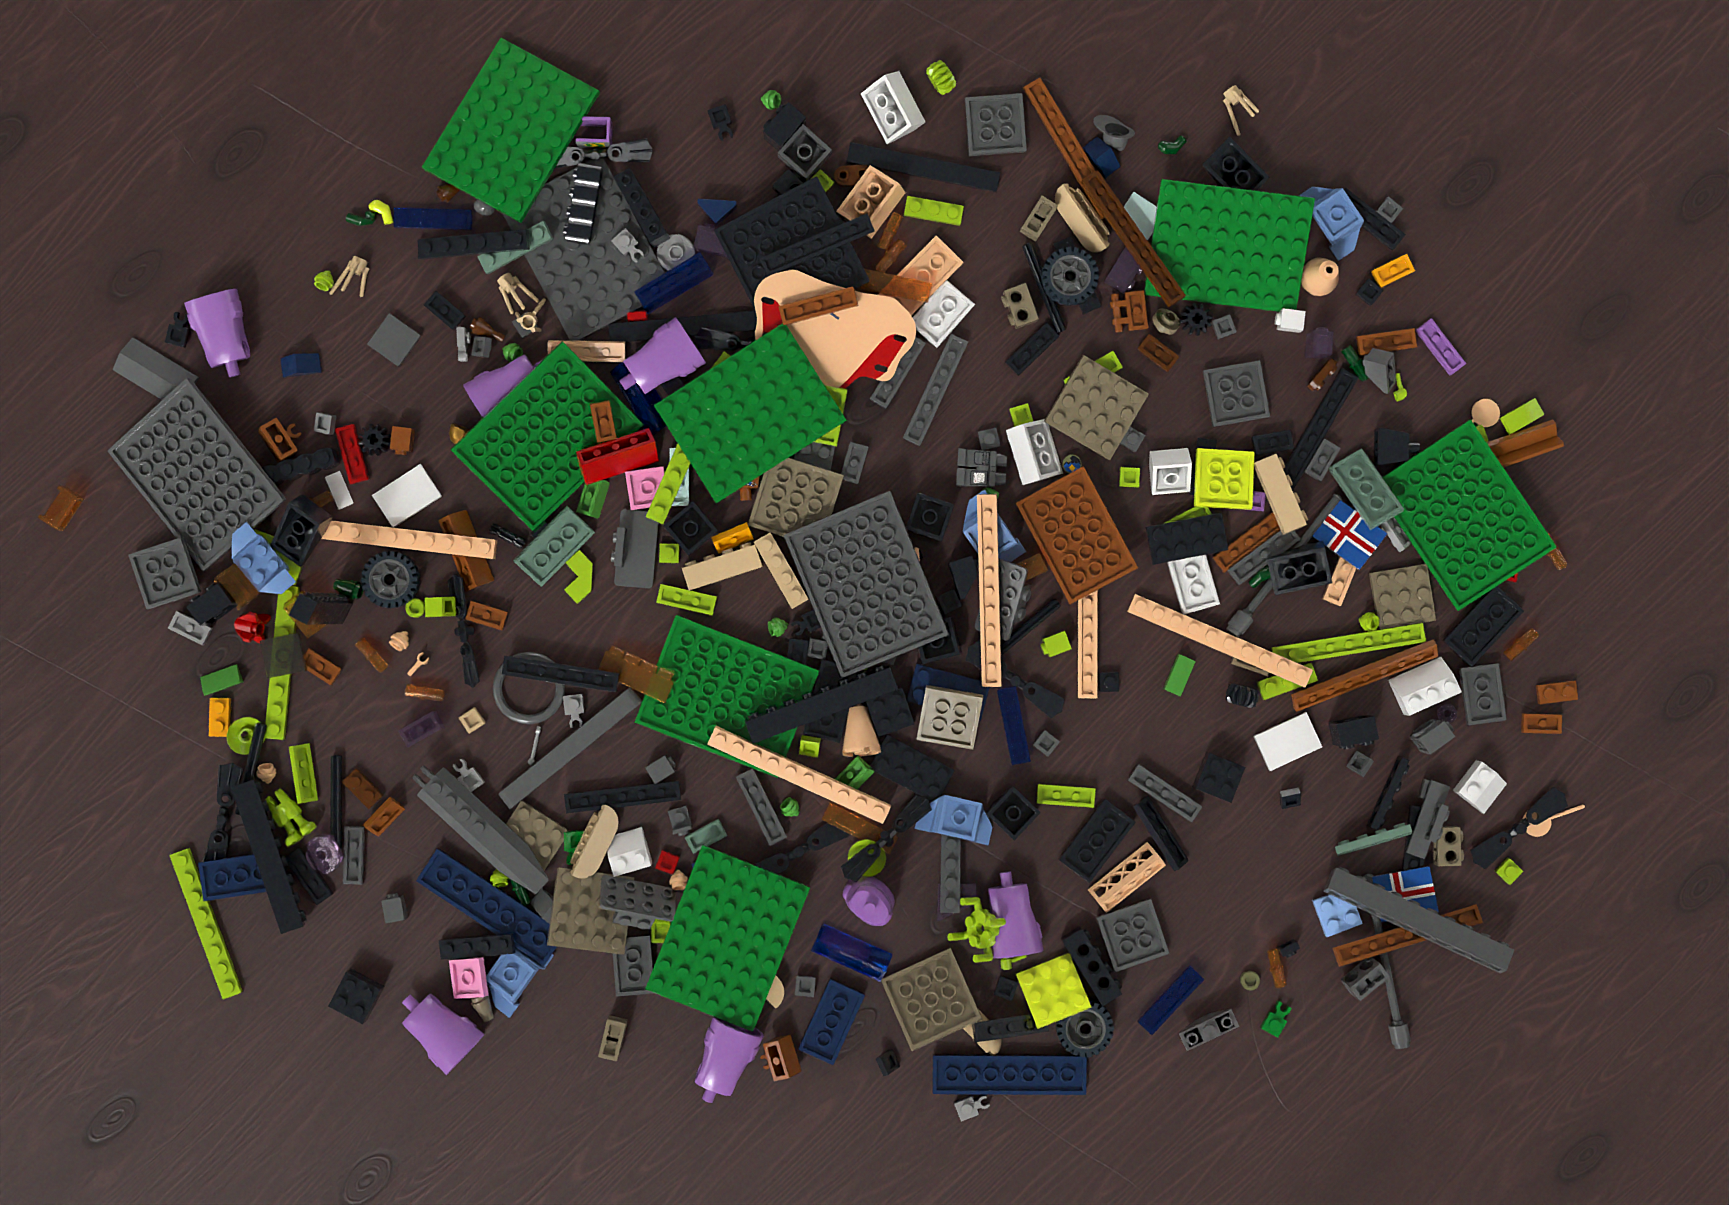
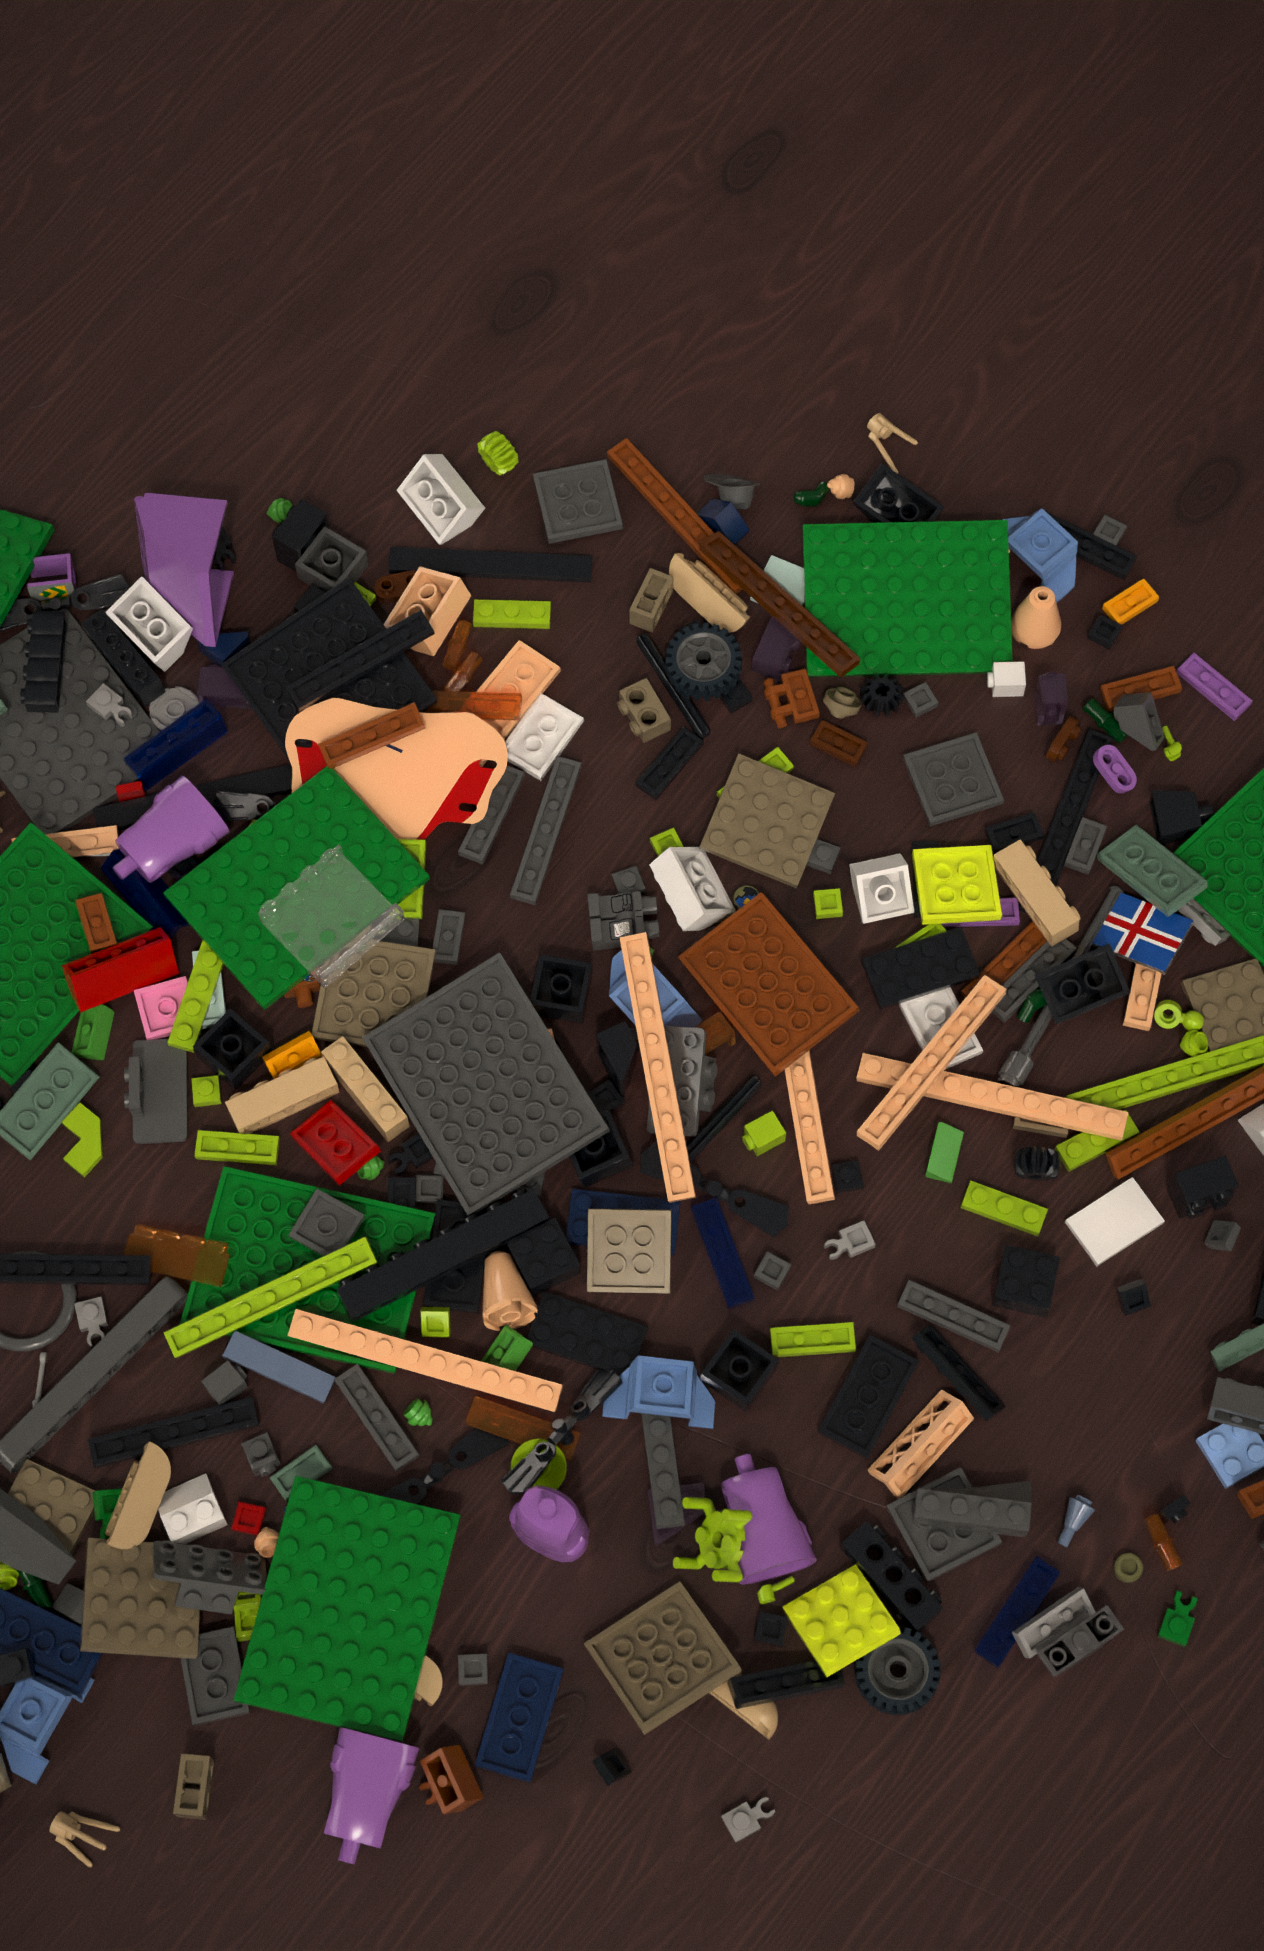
camera: 10 degrees left, 20 degrees down
(527, 1050) = (66, 1828): none -> tan plant
(664, 185) = (151, 623): none -> white slope
(695, 143) = (177, 556): none -> medium lavender windscreen
(699, 717) = (270, 1297): none -> lime plate
(699, 762) = (279, 1367): none -> sand blue tile
(743, 671) = (326, 1224): none -> dark grey plate
(755, 607) = (335, 1142): none -> red tile
(772, 444) = (329, 916): none -> clear panel
(851, 952) = (535, 1611): clear blue panel -> none
(1009, 1074) = (797, 1759): dark blue plate -> none
(1105, 729) = (853, 1239): none -> light grey plate
(1164, 932) = (986, 1509): none -> dark grey wedge
(1182, 612) = (931, 1062): none -> light nougat plate
(1193, 1012) = (1053, 1622): none -> light grey plate
(1196, 142) = (841, 486): none -> light nougat plate
(1213, 720) = (1004, 1208): none -> lime plate
(1222, 941) = (1077, 1513): none -> sand blue cone
(1355, 402) = (1115, 768): none -> medium lavender plate
(1370, 604) = (1191, 1020): none -> lime plate

